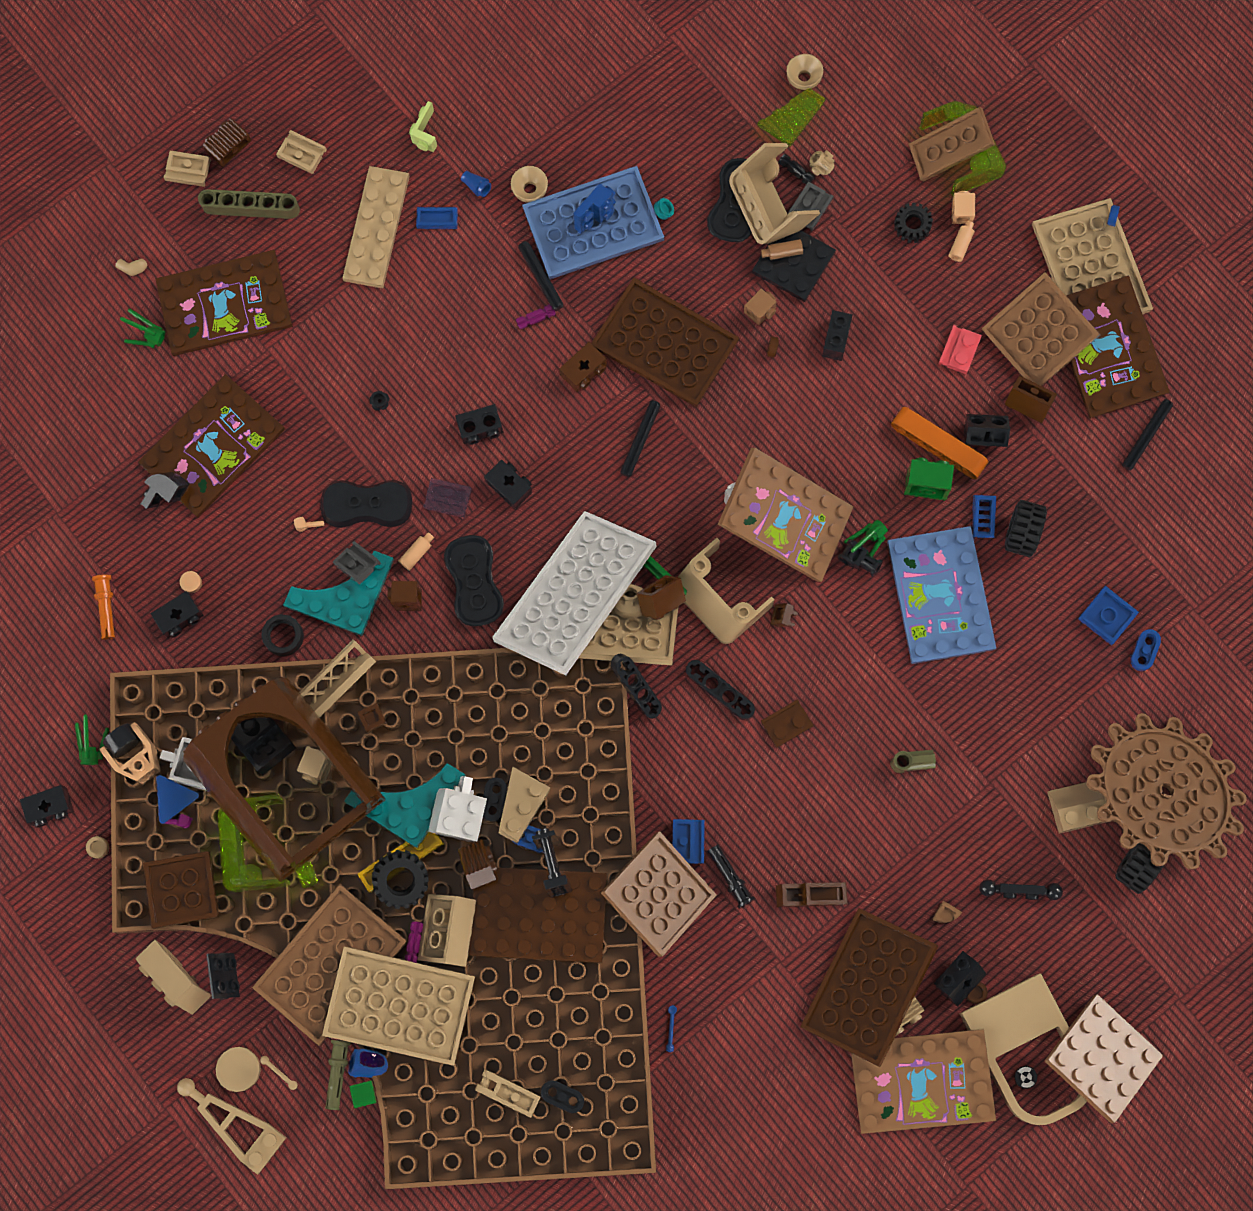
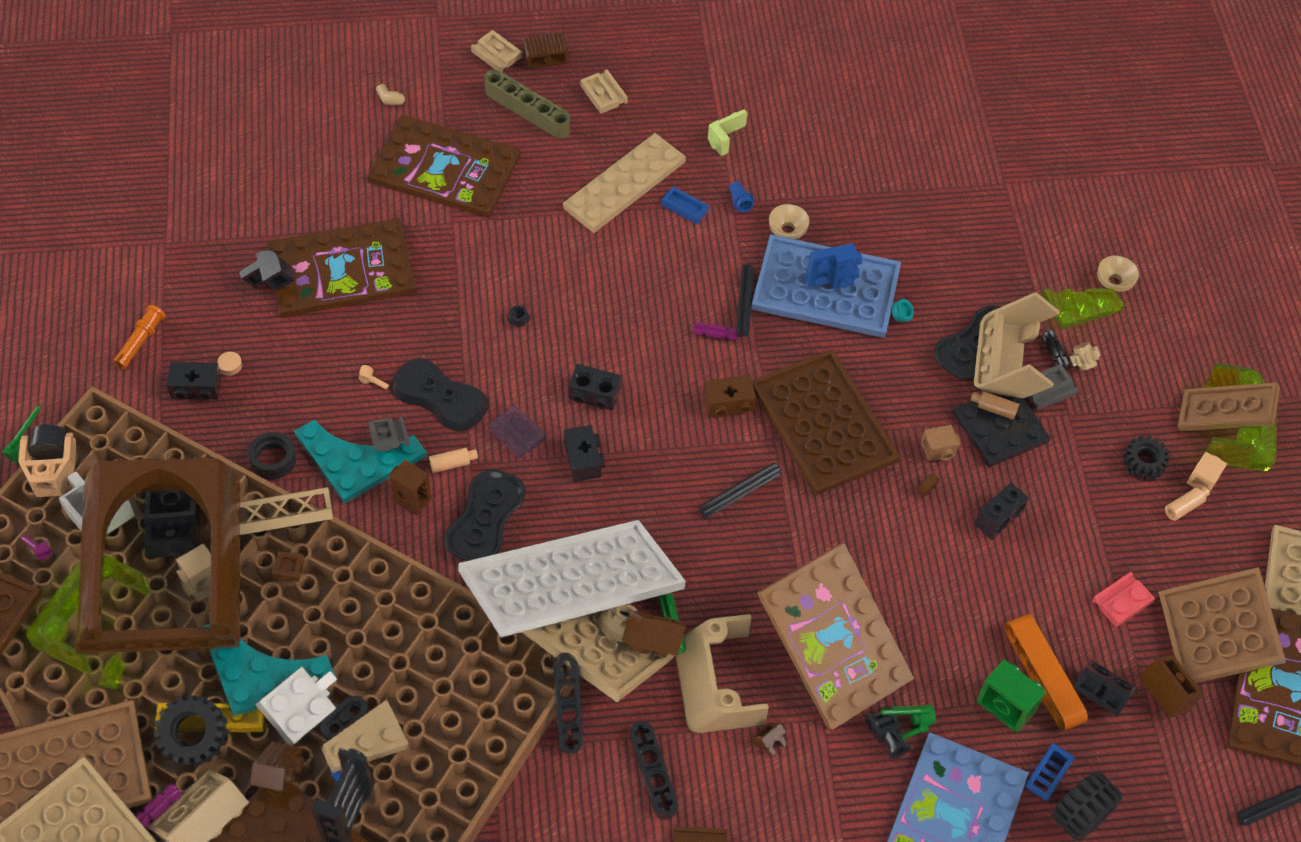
camera: 25 degrees right, 20 degrees down
(153, 334) = (364, 154): green plant -> none
(172, 798) = (49, 520): blue piece -> none

